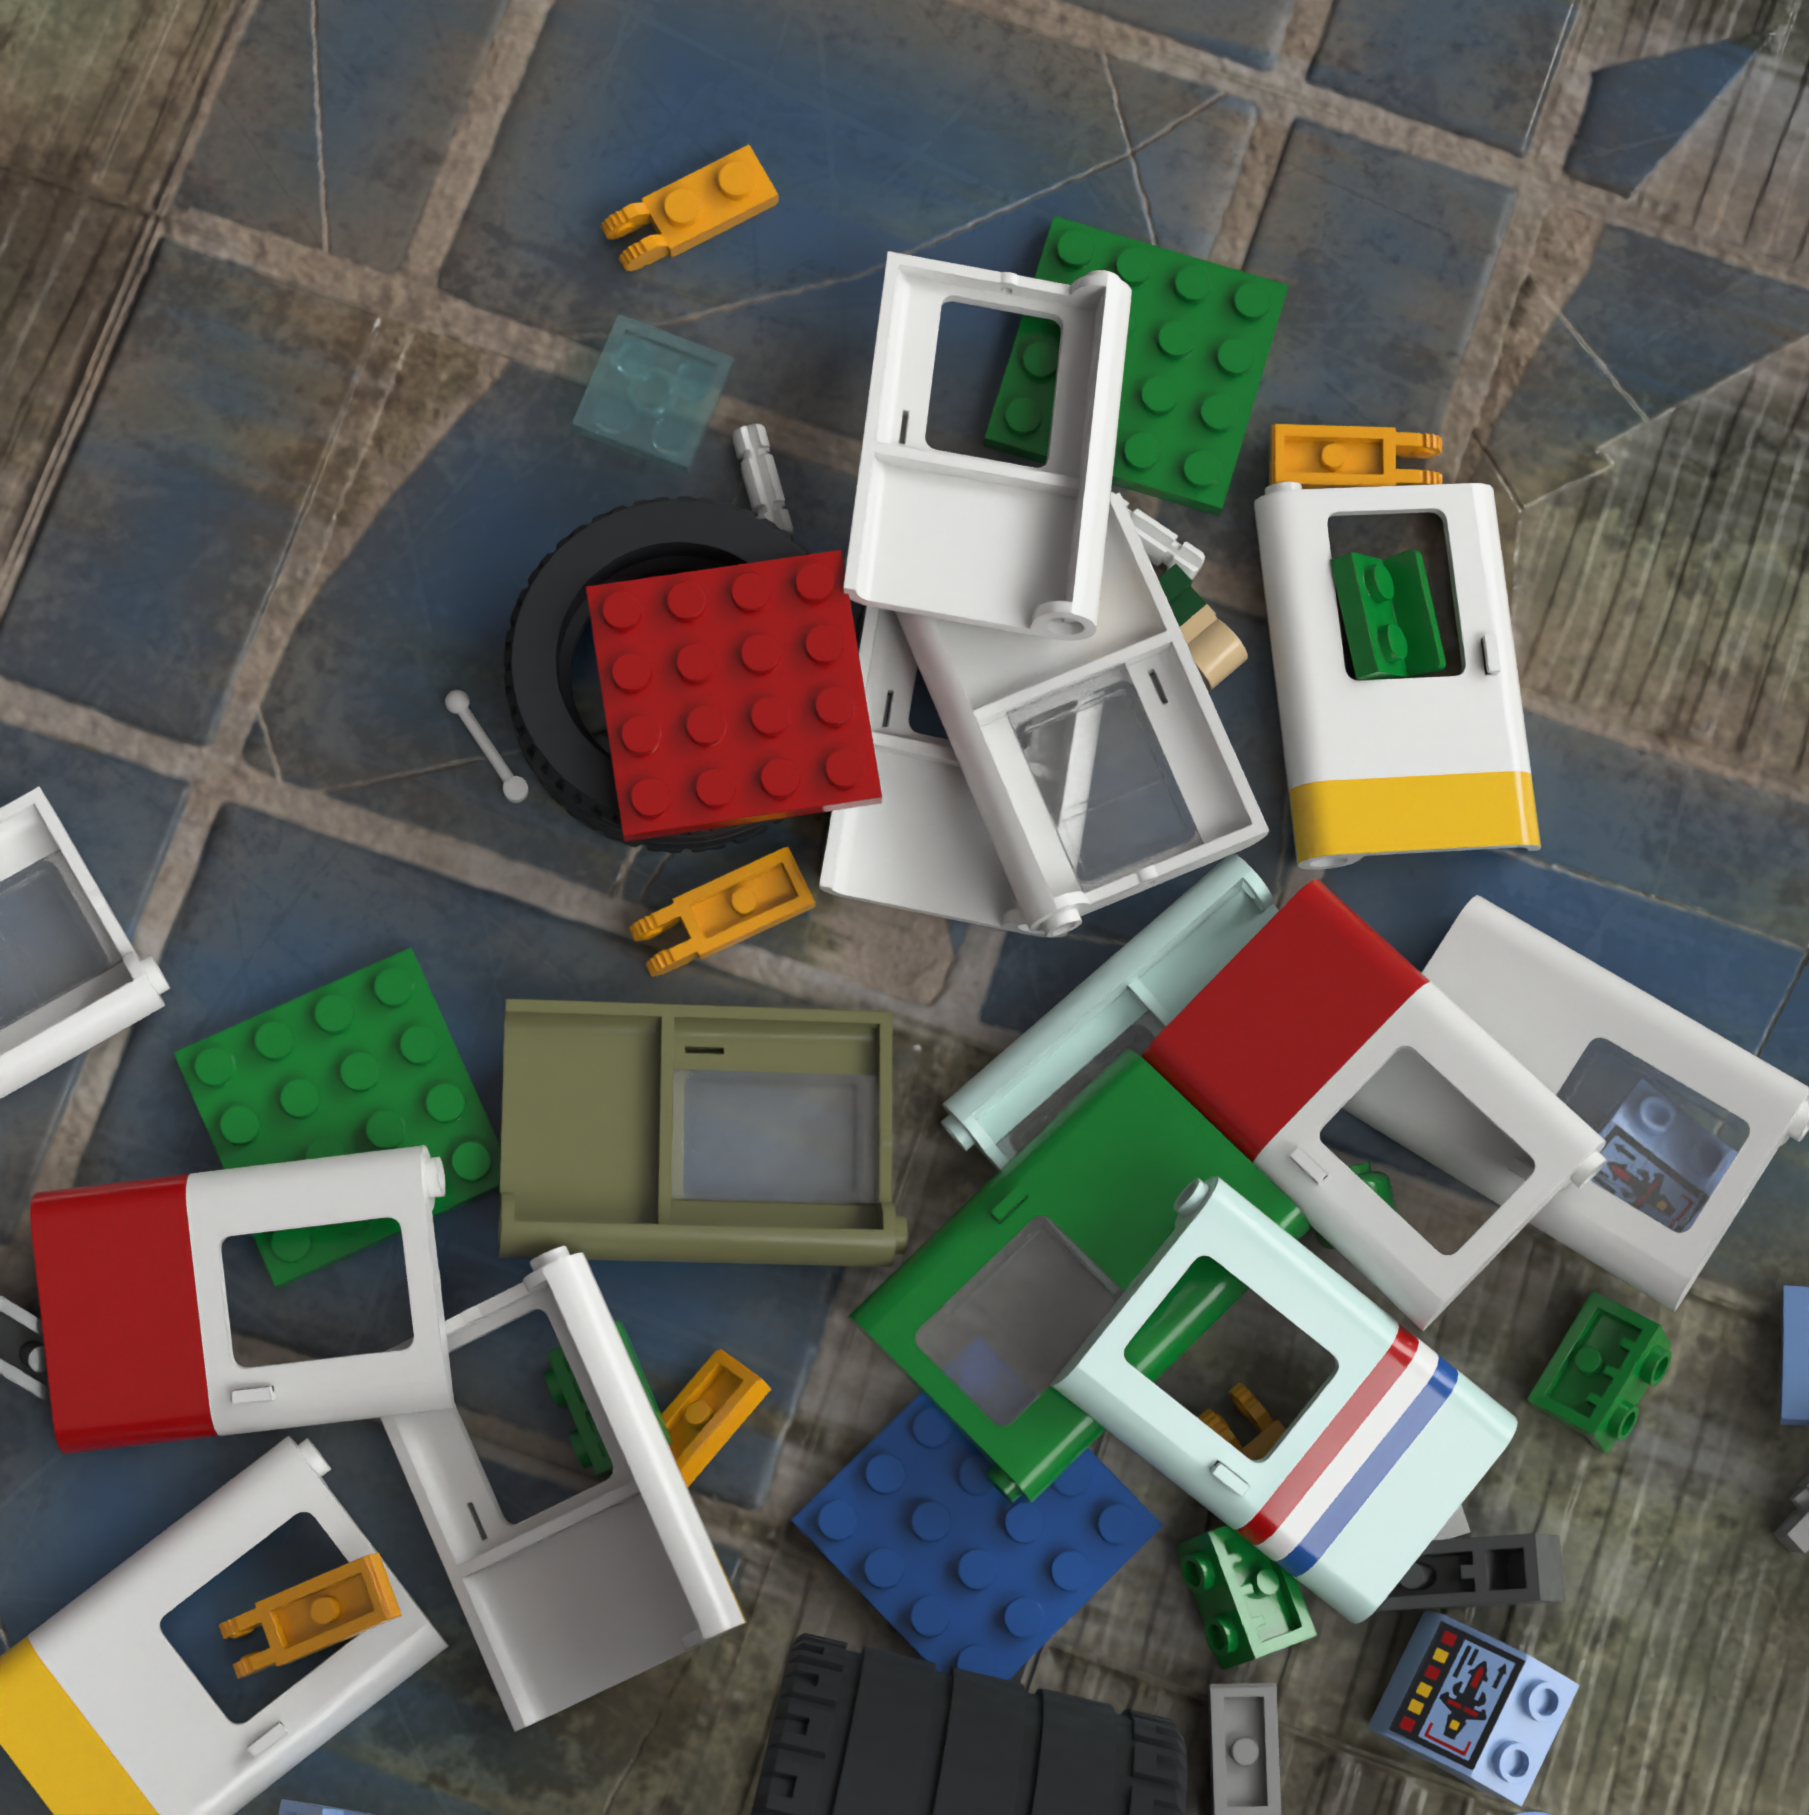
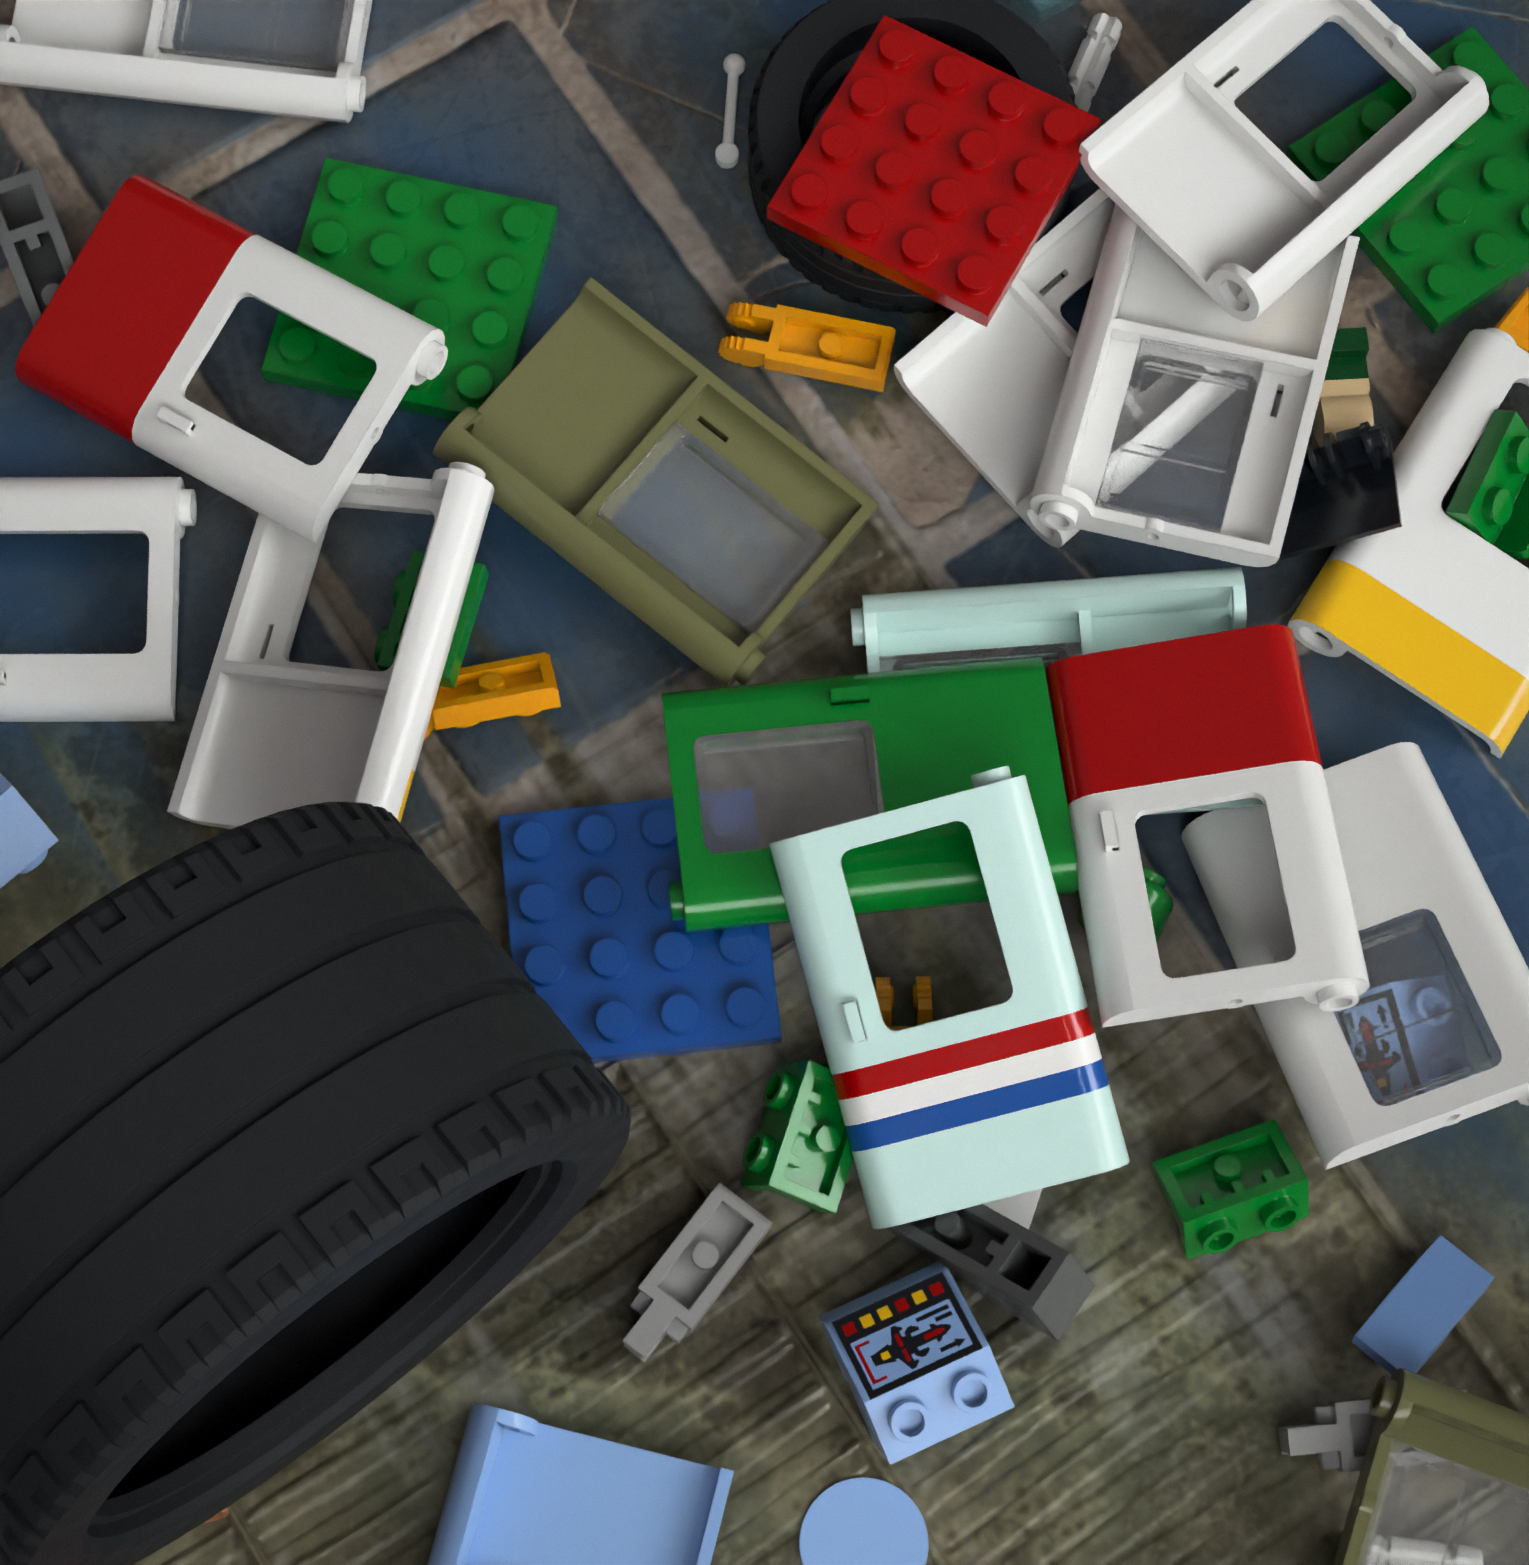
camera: 45 degrees right, 5 degrees down
(316, 1614) = (91, 612): light orange hinge -> none
(1162, 544) = (1365, 310): white axle -> none
(1268, 719) = (1344, 491): none -> black hinge

